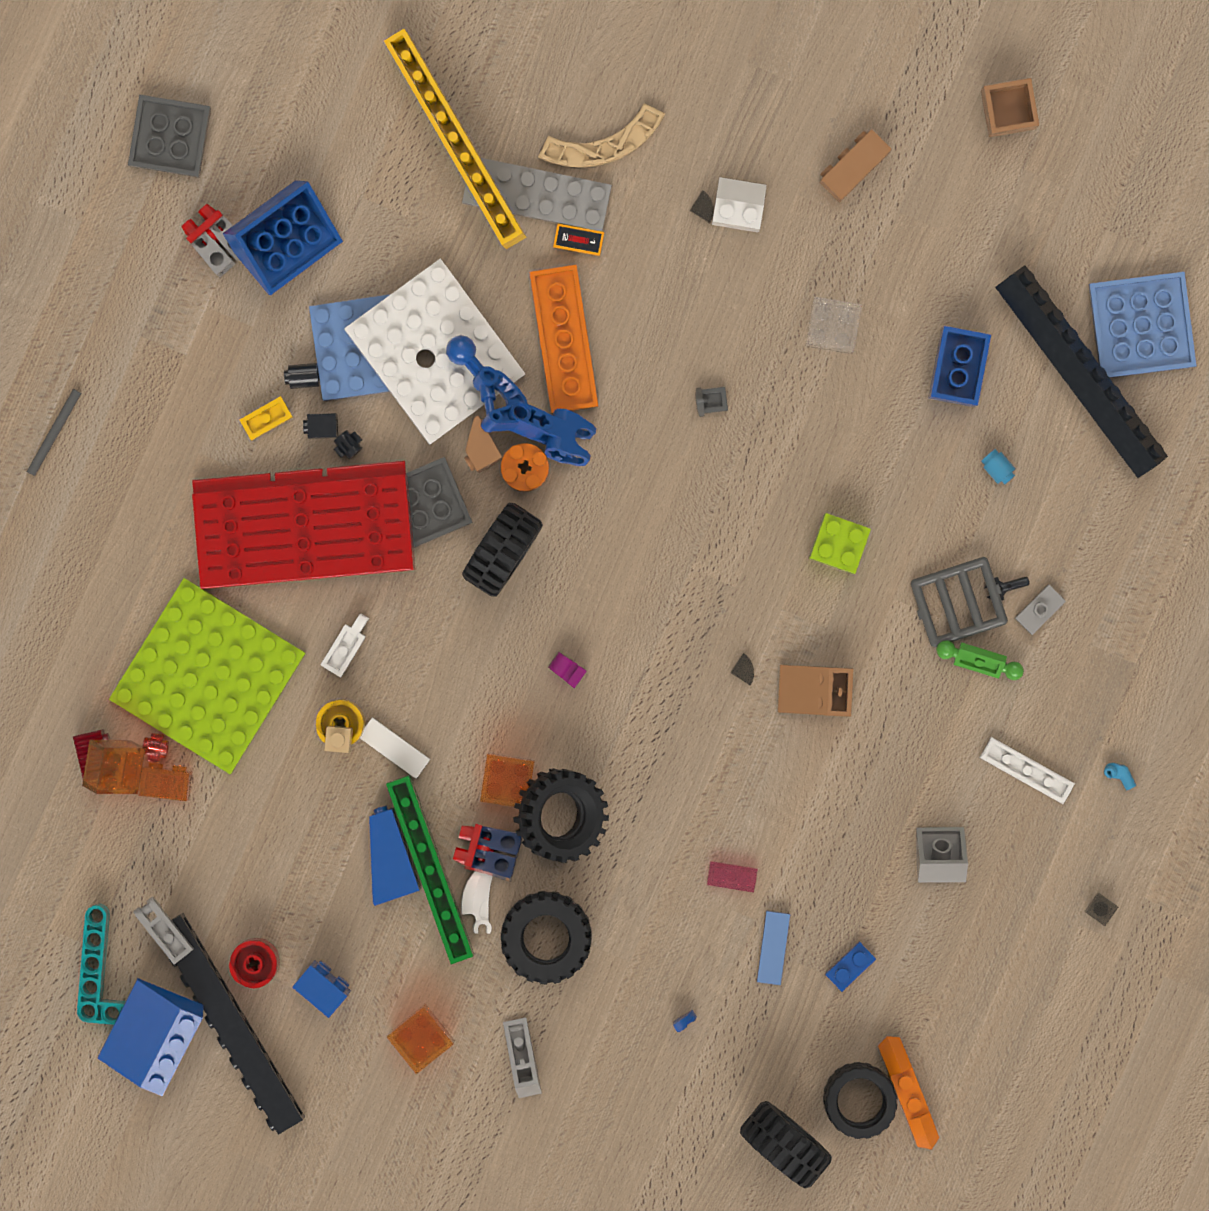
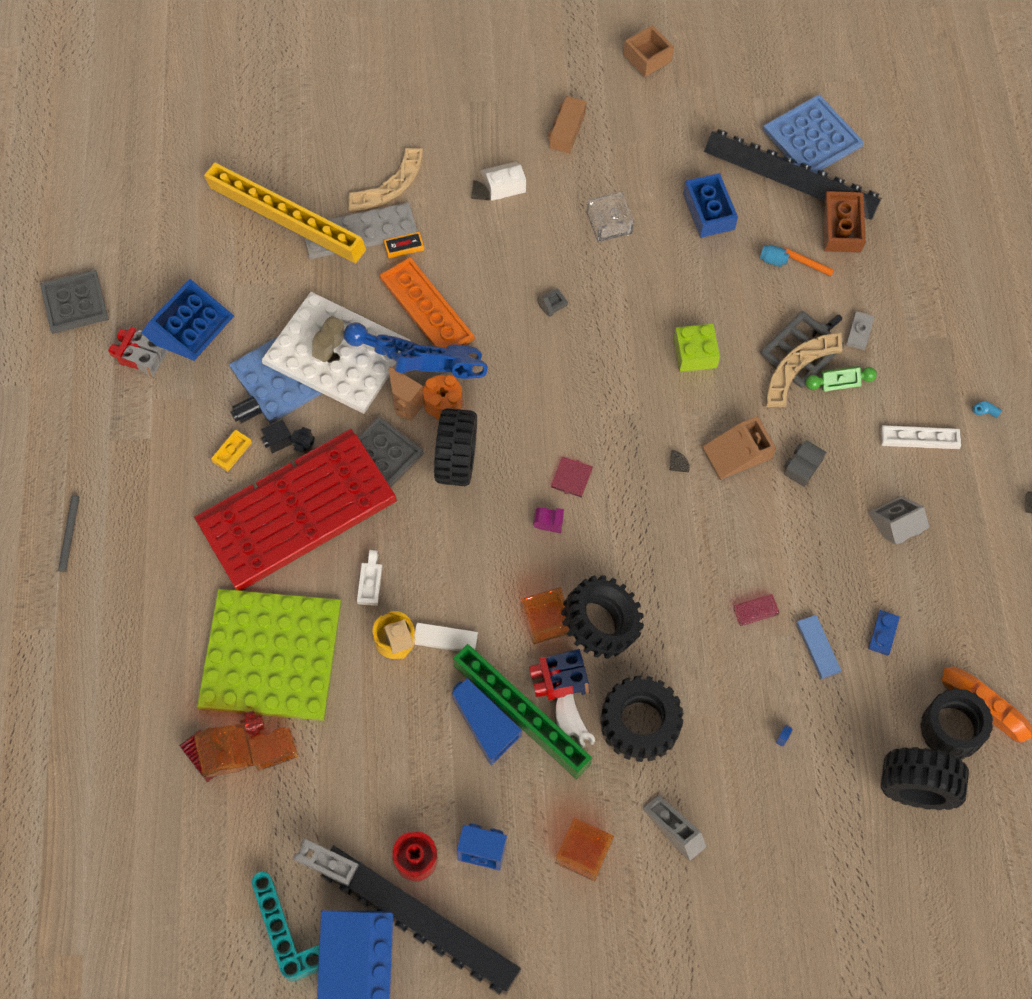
camera: 30 degrees left, 25 degrees down
(432, 339) = (328, 339): none -> dark tan brick
(620, 628) = (571, 477): none -> clear pink piece
(879, 740) = (804, 463): none -> dark grey brick
(939, 616) = (795, 361): none -> tan tile
(1034, 491) = (809, 262): none -> orange piece
(1101, 467) = (844, 222): none -> dark orange slope

